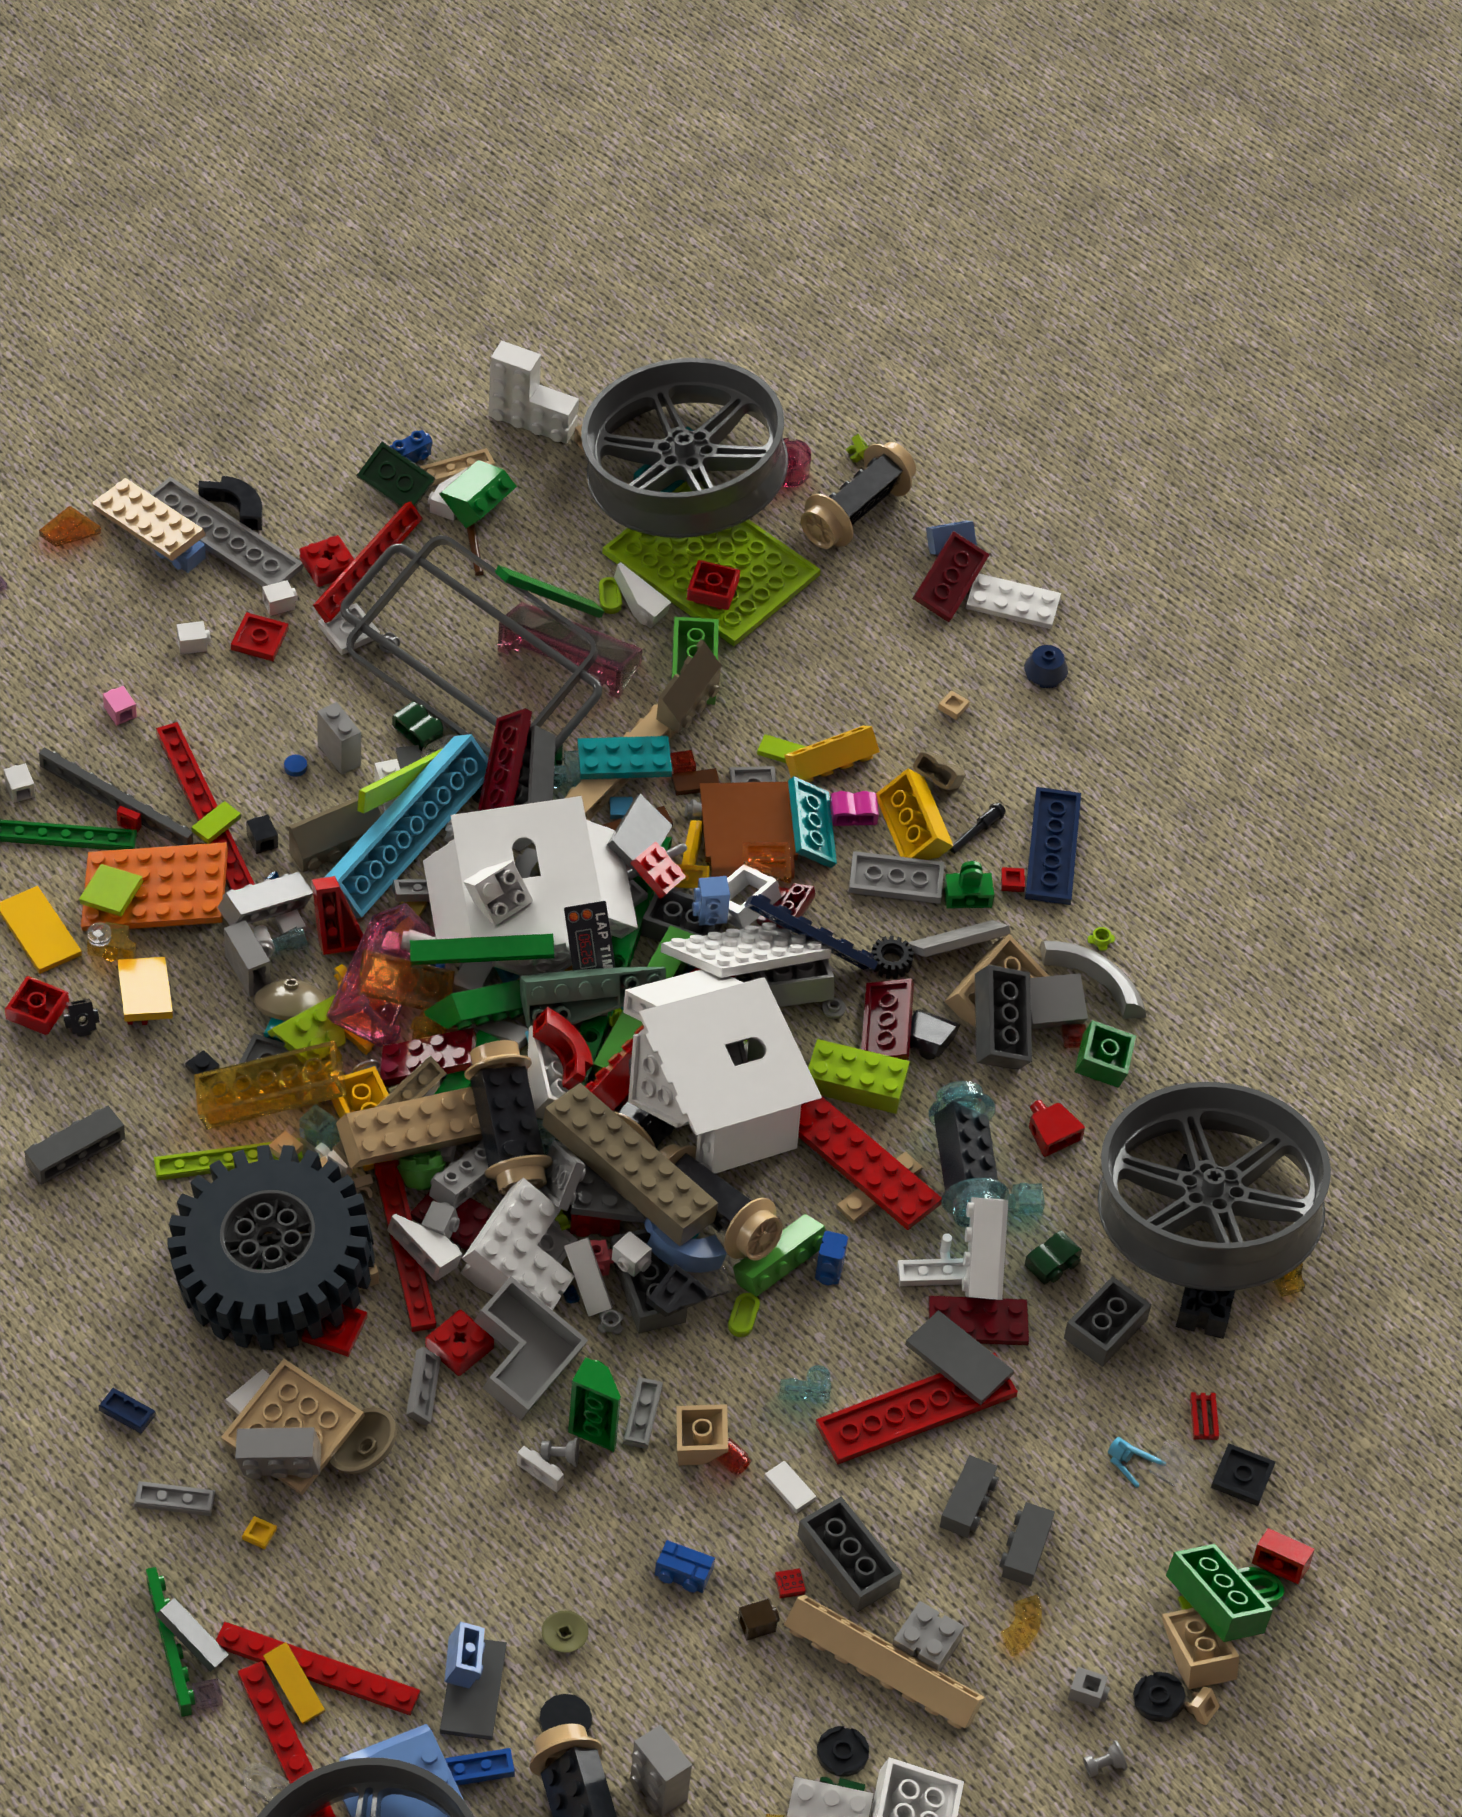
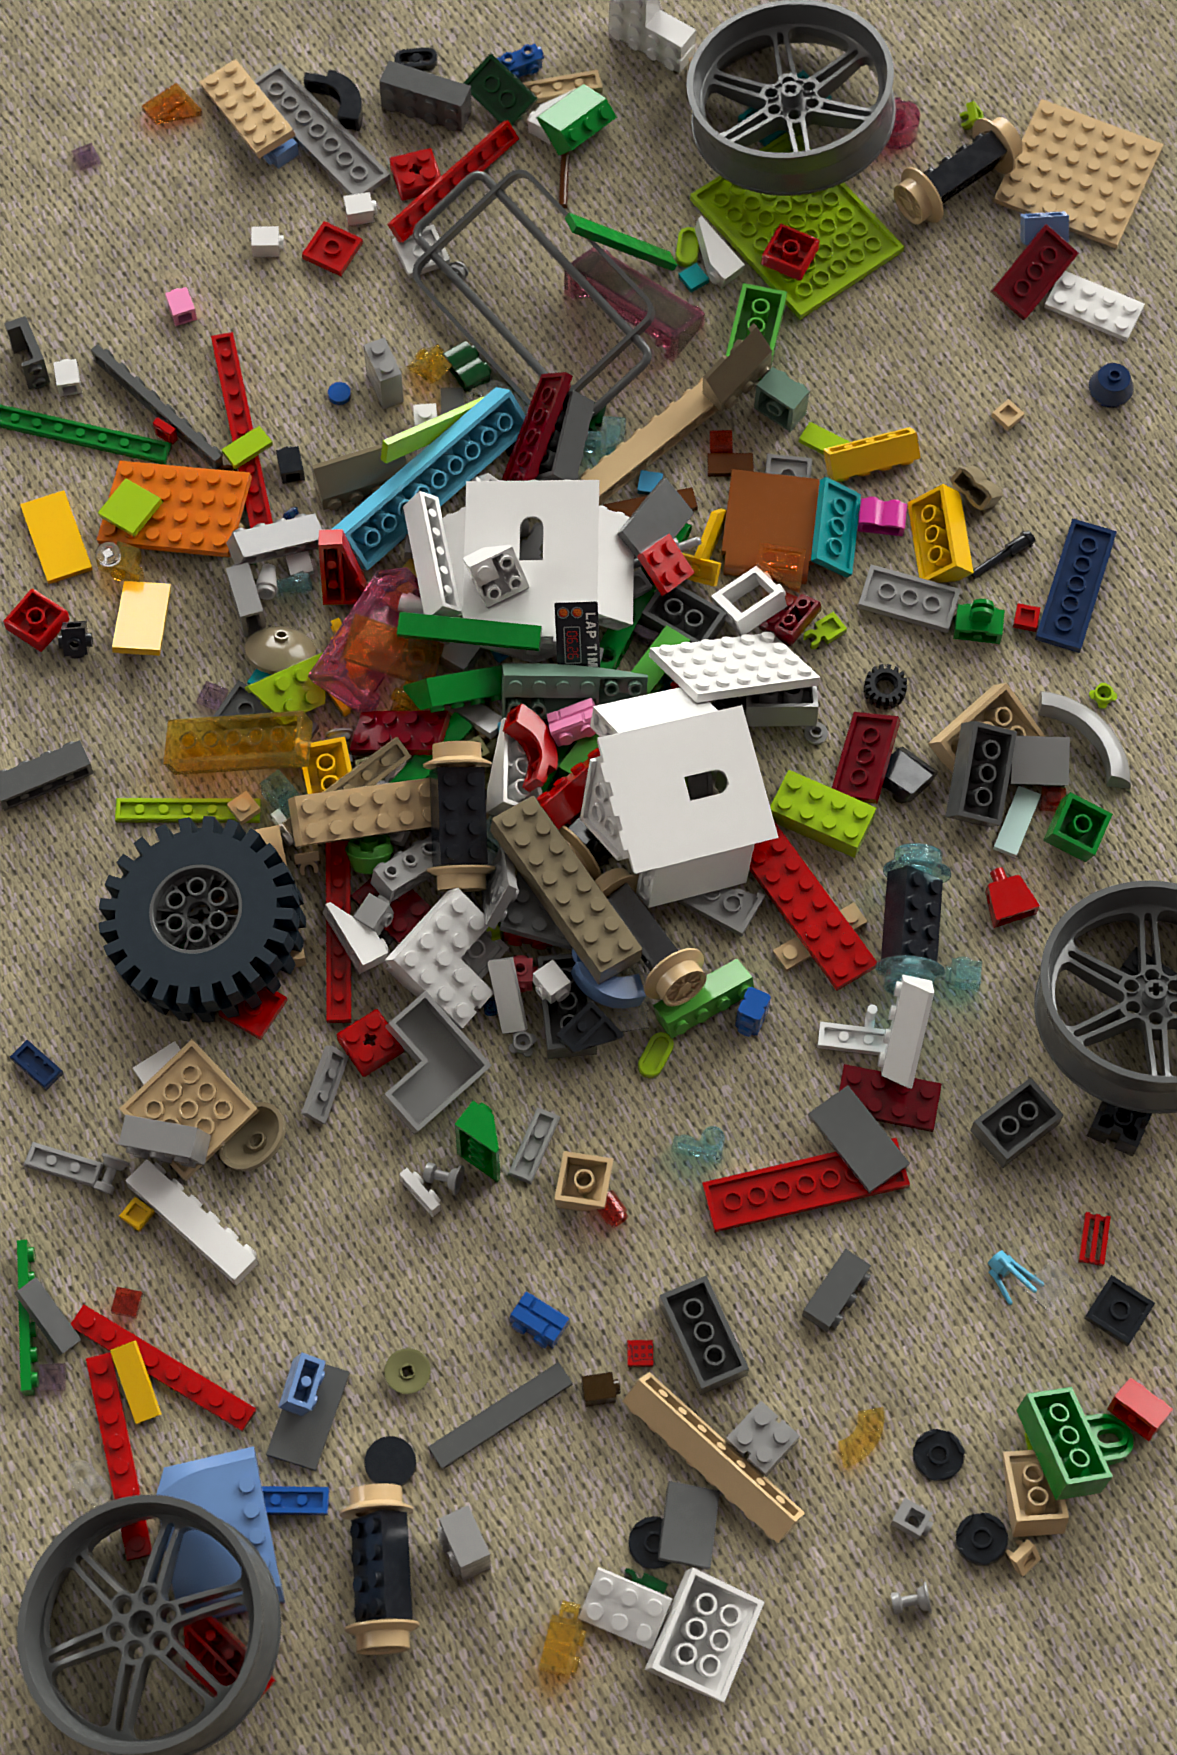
camera: 15 degrees right, 15 degrees up
(201, 1063) = (183, 705): black plate -> none
(227, 1487) = (113, 1165): none -> light grey piece
(229, 1052) = (212, 696): none -> tile
(268, 1613) = (126, 1302): none -> clear red plate
(303, 460) = (416, 58): none -> black plate
(318, 1529) = (192, 1222): none -> white brick
(324, 489) = (425, 96): none -> dark grey brick
(381, 726) = (429, 364): none -> clear yellow brick
(426, 889) = (431, 556): none -> white brick
(601, 1021) = (571, 722): none -> bright pink brick
(622, 621) = (693, 277): none -> teal tile
(624, 757) = (661, 432): teal plate -> none
(648, 942) = (644, 635): none -> tile
(664, 1660) = (500, 1415): none -> dark grey tile
(693, 810) = (720, 497): light grey plate -> none
(711, 900) = (710, 607): medium blue brick -> none
(734, 715) = (781, 399): none -> sand green brick
(781, 1173) = (726, 907): none -> light grey wing
(790, 1487) = (662, 1249): white tile -> none
(802, 926) = (813, 659): dark blue plate -> none
(825, 913) = (827, 629): none -> lime plate
(873, 1726) = (688, 1525): none -> dark grey tile
(959, 938) = (956, 677): light grey tile -> none
(974, 482) = (1080, 169): none -> tan plate
(1026, 1543) = (883, 1351): dark grey brick -> none
(1045, 1060) = (1017, 821): none -> light aqua tile
(1053, 1258) = (978, 1042): dark green brick -> none
(1100, 1629) = (931, 1460): none -> black tile

